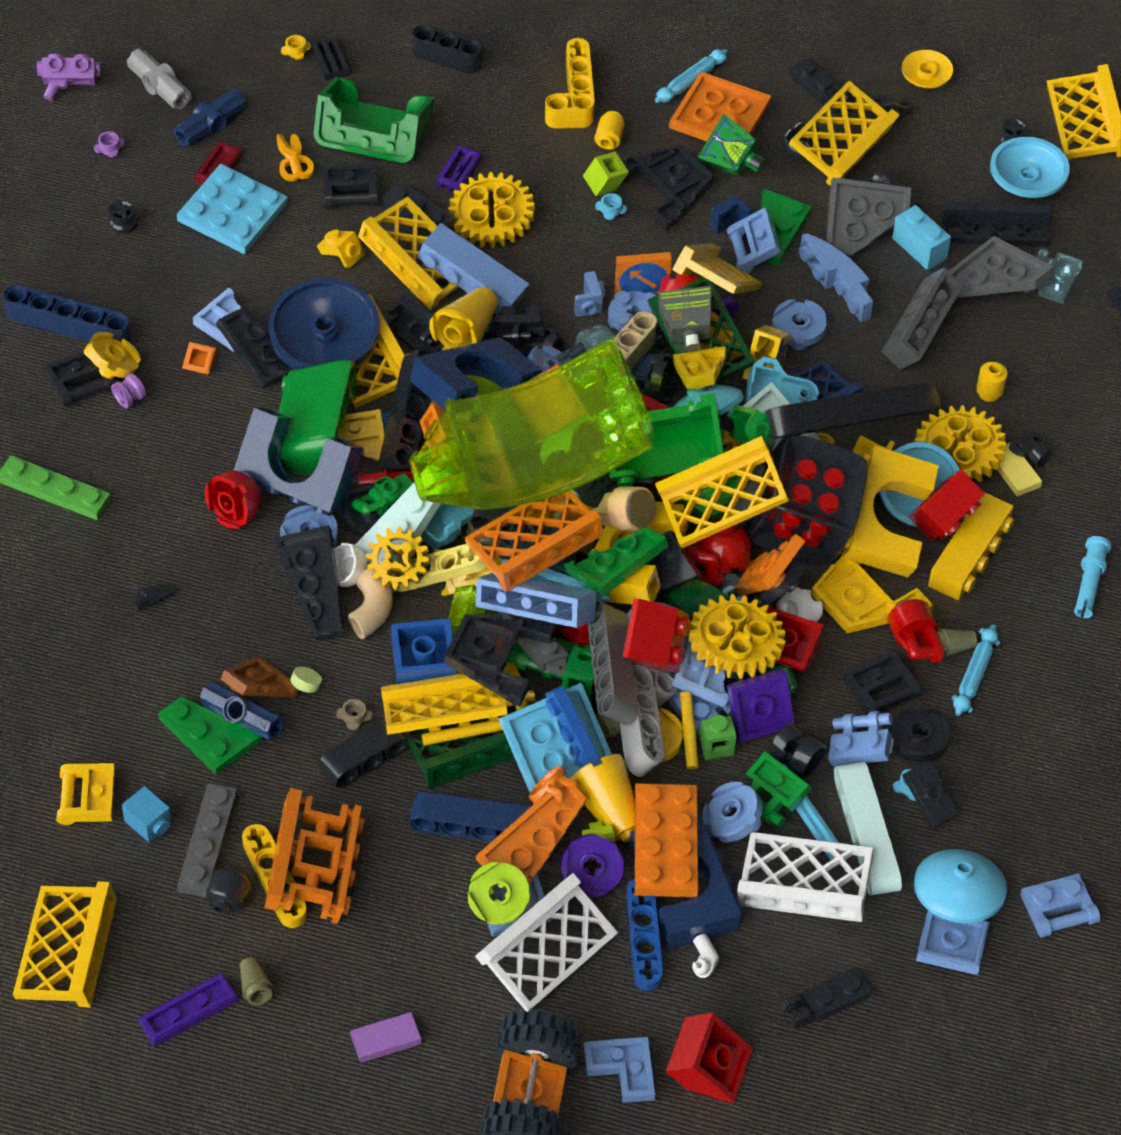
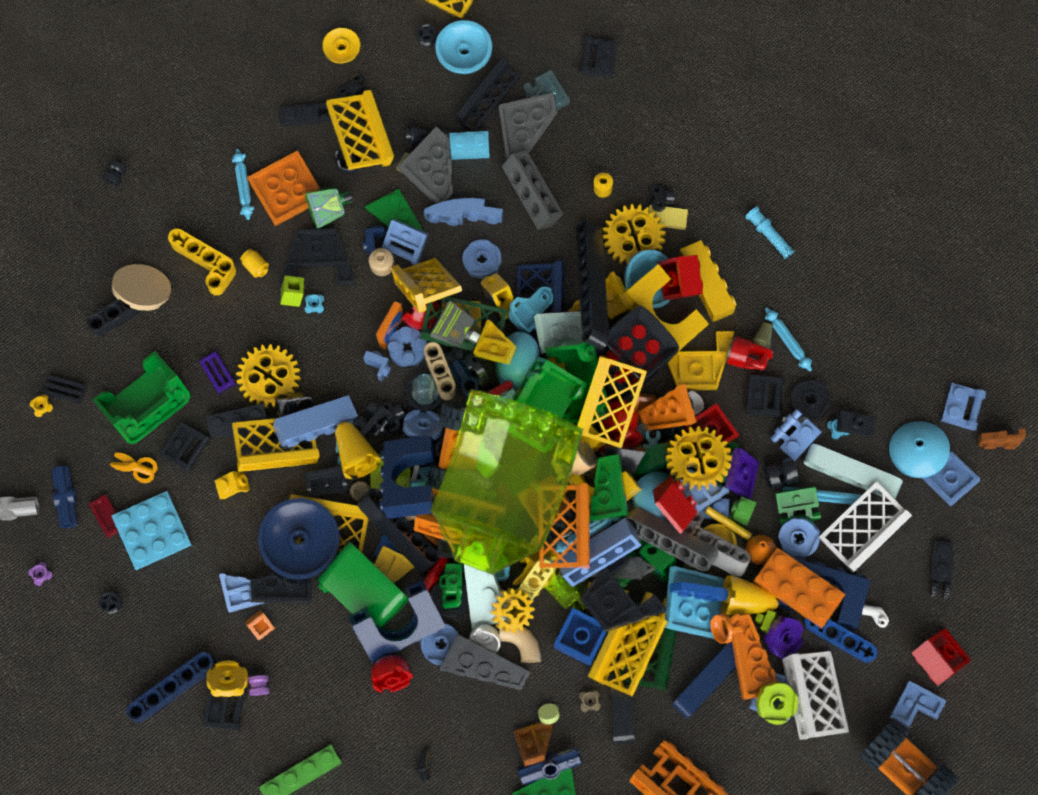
camera: 50 degrees left, 20 degrees up
(478, 238) = (290, 403): none -> black piece
(495, 48) = (141, 286): none -> tan tile
(689, 775) = (760, 549): none -> orange helmet
(711, 229) = (381, 262): none -> tan head
(1058, 973) = (1001, 439): none -> dark orange wing

